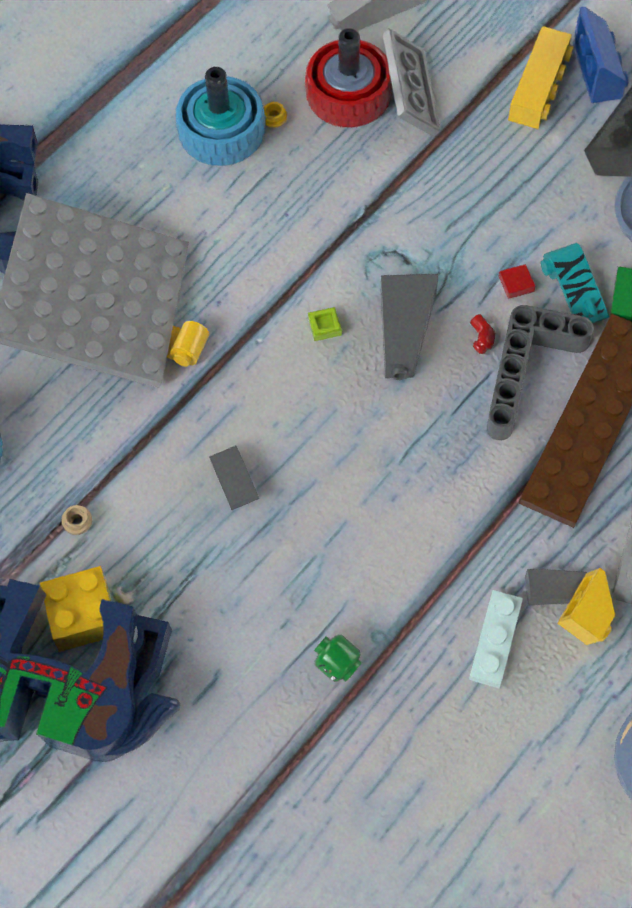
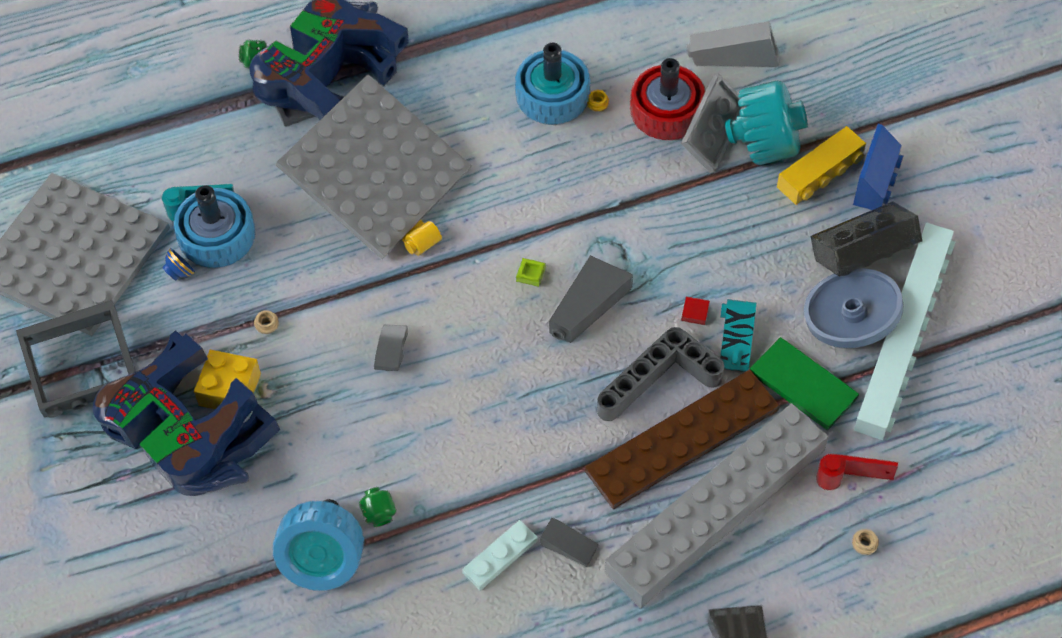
camera: 30 degrees right, 5 degrees down
(312, 735) = (318, 545): none -> dark azure wheel
(469, 51) = (768, 120): none -> teal piece
(486, 334) = (643, 338): red arm -> none
(590, 609) = (577, 569): yellow slope -> none

